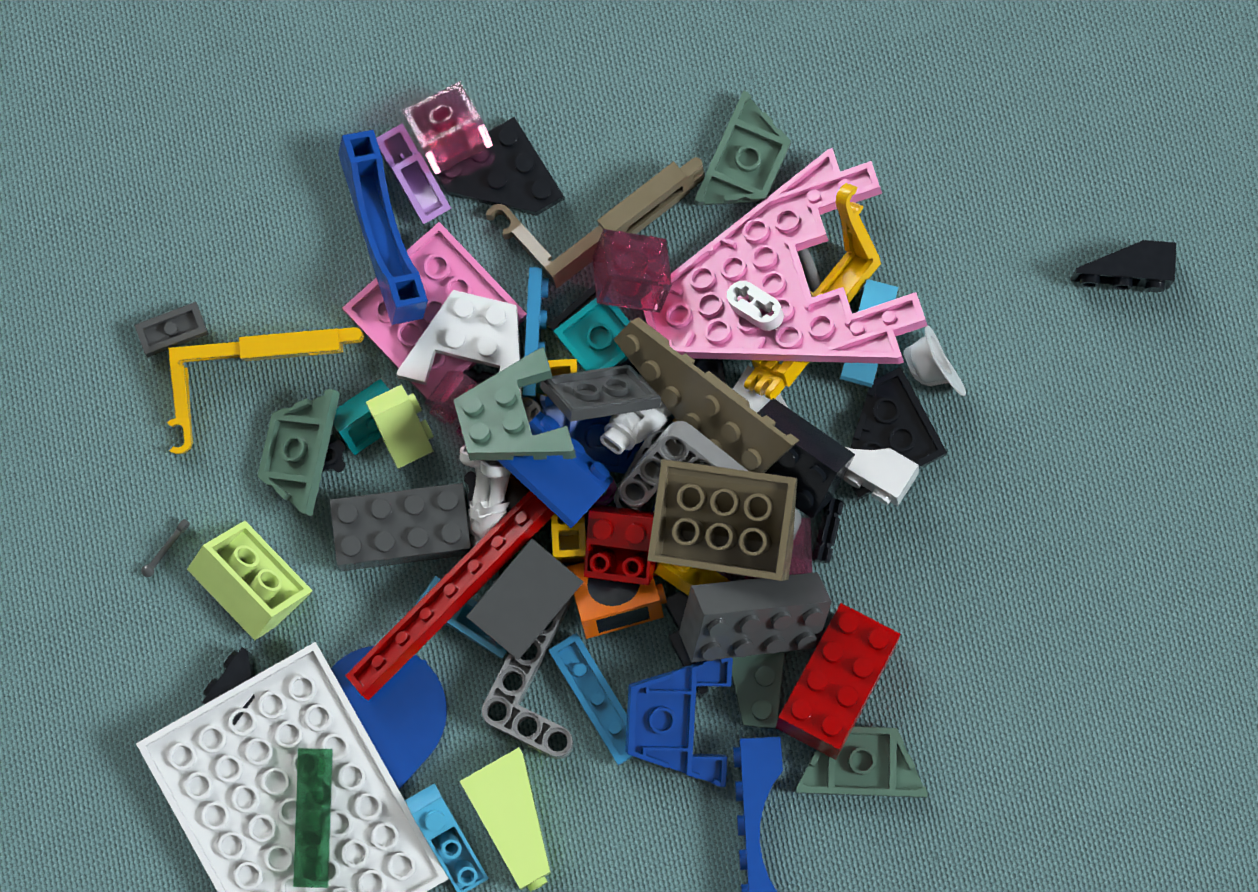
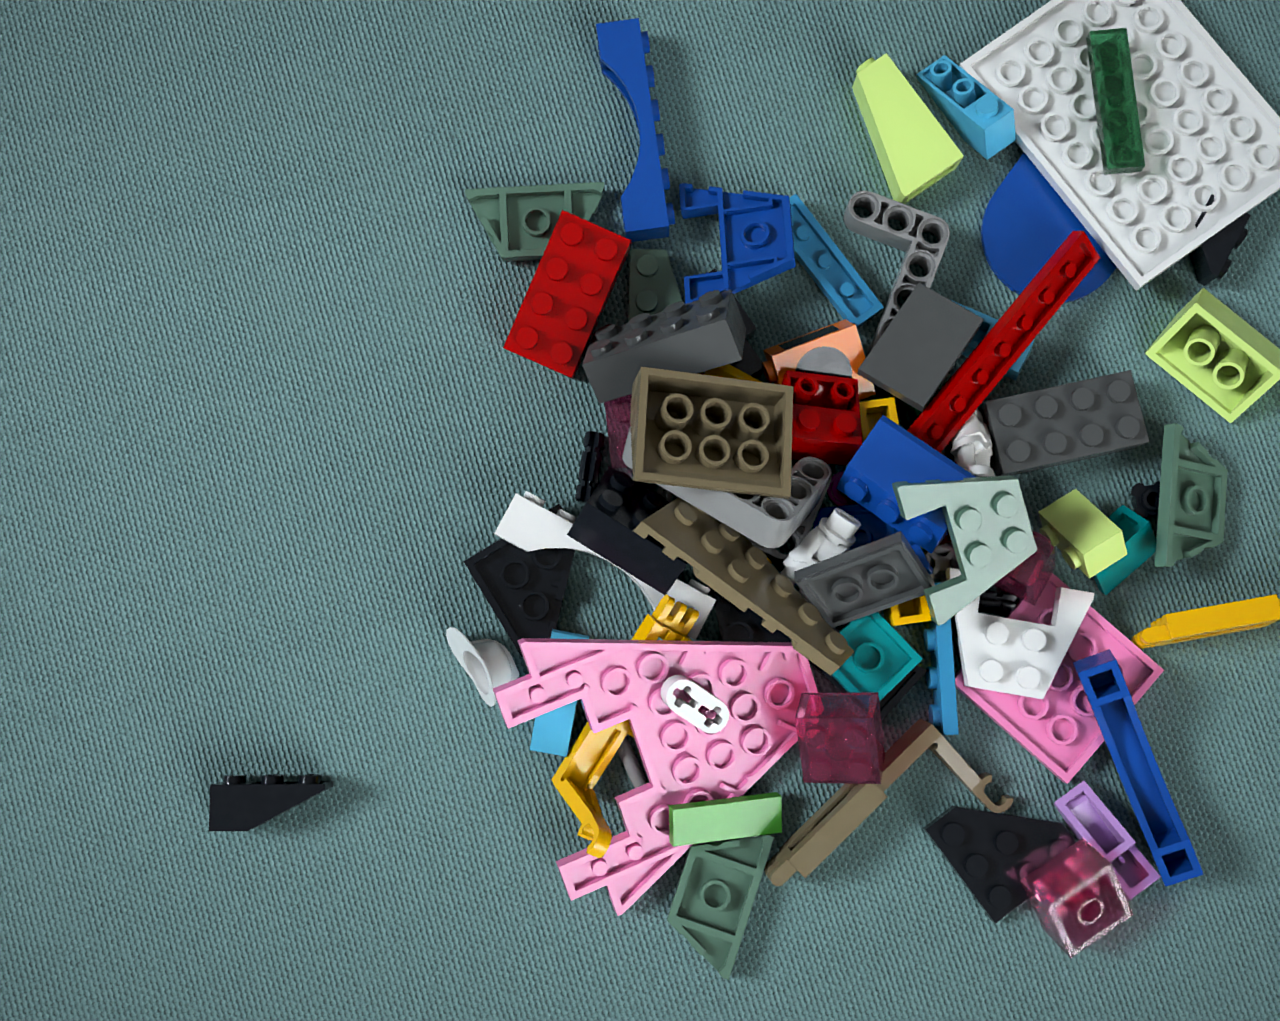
camera: 175 degrees right, 5 degrees up
(734, 217) = (725, 819): none -> tile

